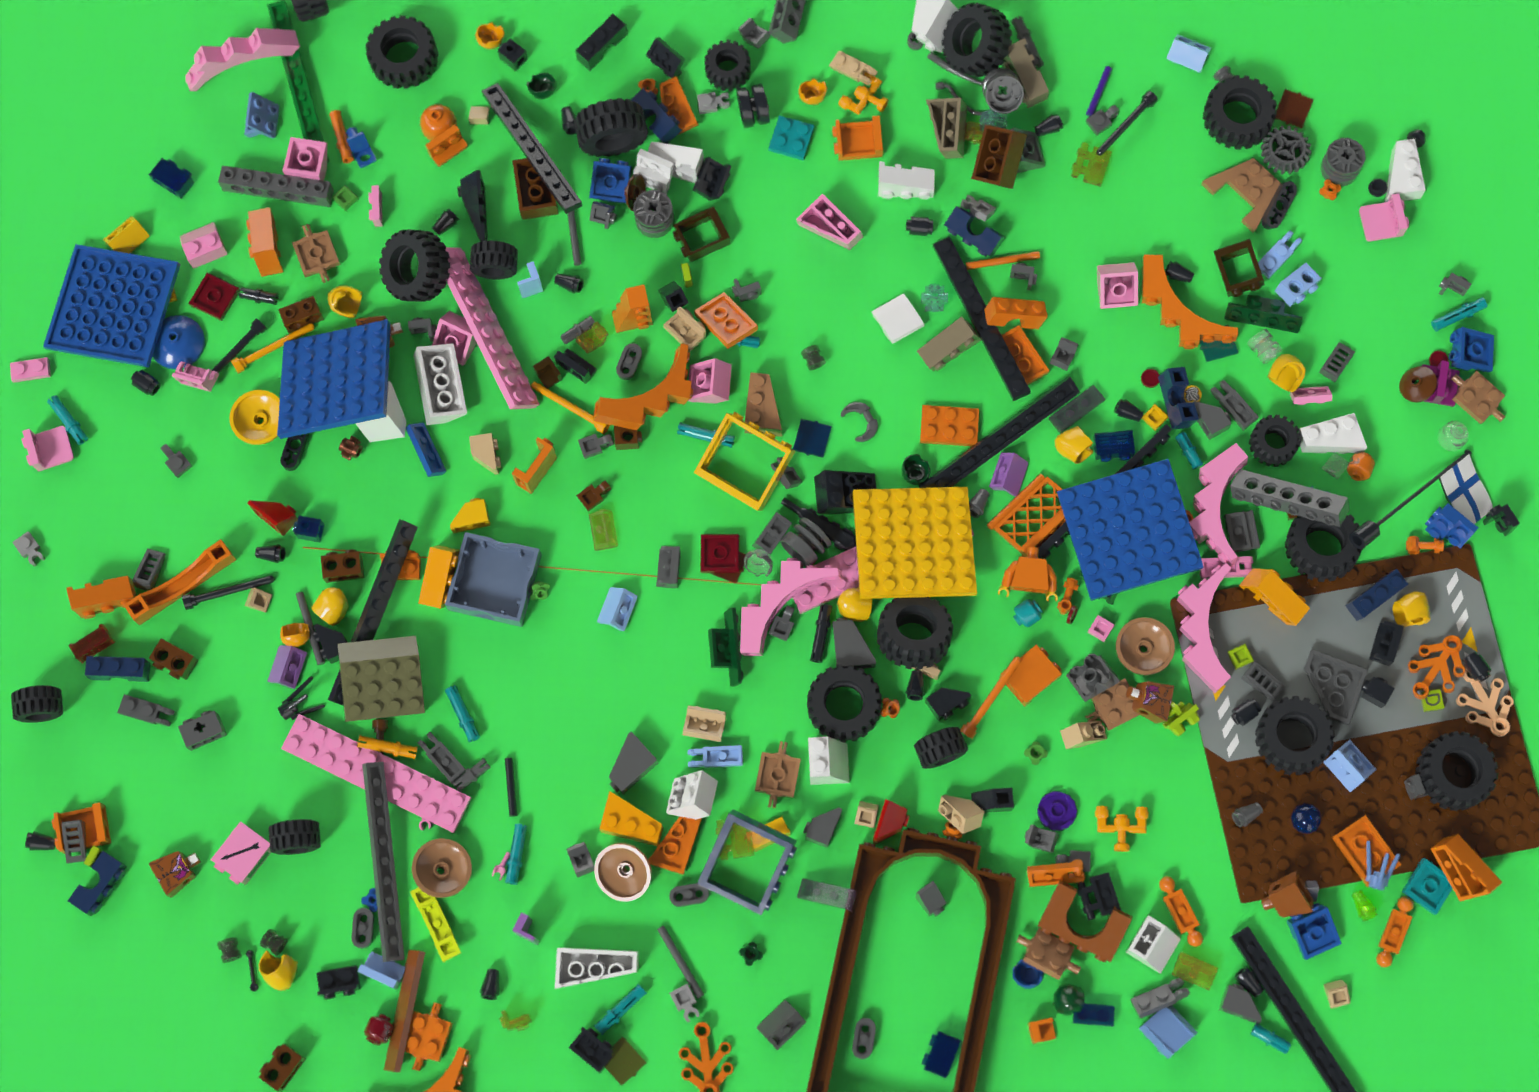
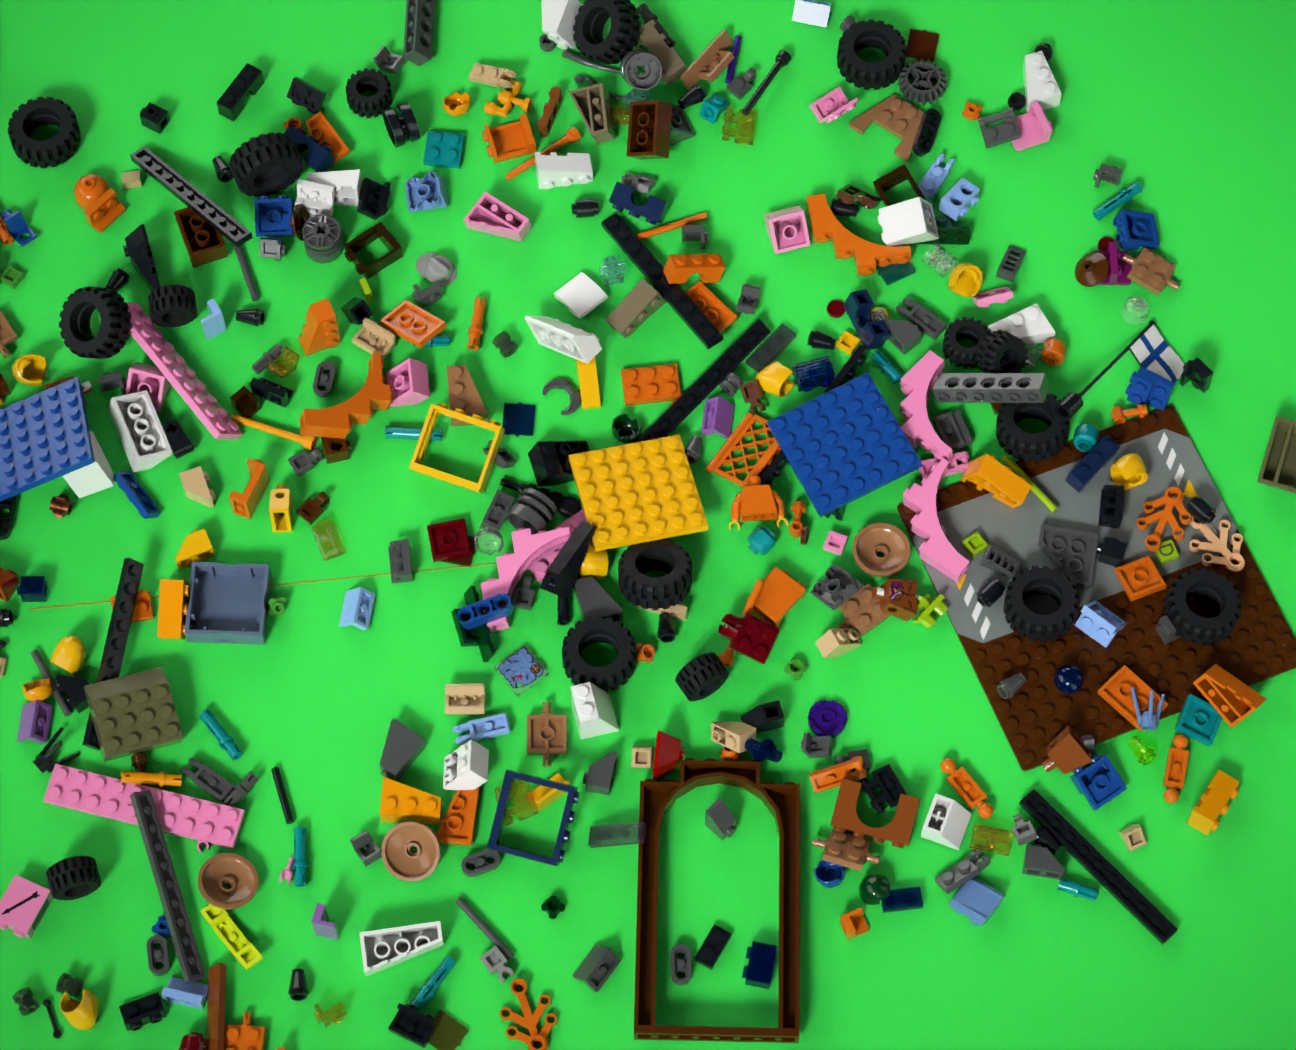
camera: 15 degrees left, 10 degrees down
(342, 571) = (74, 623): reddish brown brick -> none
(375, 199) = (45, 285): bright pink plate -> none
(475, 401) = (178, 441): none -> black piece
(489, 35) = (128, 104): light orange hair -> none
(542, 85) = (189, 141): dark green hair -> none
(561, 491) = (281, 503): none -> yellow torso
(709, 102) = (357, 131): light grey plate -> none
(748, 643) = (495, 613): none -> blue beam
(760, 263) = (436, 269): none -> light grey piece
(765, 181) = (426, 192): none -> medium blue slope
(765, 702) = (521, 670): none -> tile
(786, 338) = (475, 330): none -> orange pin
(830, 604) = (565, 567): none -> black wedge
(872, 364) = (564, 338): none -> white slope
(888, 408) = (588, 384): none -> yellow slope
(898, 1026) = (713, 947): none -> black plate
(904, 116) = (550, 111): none -> dark orange hinge
(920, 146) = (571, 136): none -> orange piece
(945, 701) = (698, 636): black slope -> none
(986, 835) = (763, 750): none -> clear blue axle
(996, 712) = (749, 636): none -> dark red plate
(1029, 441) = (731, 384): none -> dark grey wheel
(1048, 455) = (752, 393): none -> reddish brown plate
(1068, 140) = (713, 107): none -> teal bracket
(1074, 91) = (710, 61): none -> medium nougat bracket
(1122, 825) = (892, 719): light orange piece -> none
(1188, 160) = (832, 106): none -> bright pink bracket
(1190, 259) = (851, 194): none -> reddish brown plate
(1229, 969) = (1023, 830): none -> dark grey plate
(1240, 303) = (908, 222): none -> white slope
(1308, 463) = (993, 348): none -> black tyre
(1313, 610) = (1035, 489): none -> lime bar
(1343, 161) = (978, 82): dark grey wheel -> none
(1356, 219) = (1000, 133): none -> dark grey plate
(1375, 565) = (1085, 437): none -> teal head
(1399, 725) = (1140, 578): none -> orange plate
(1426, 976) = (1214, 803): none -> light orange wedge

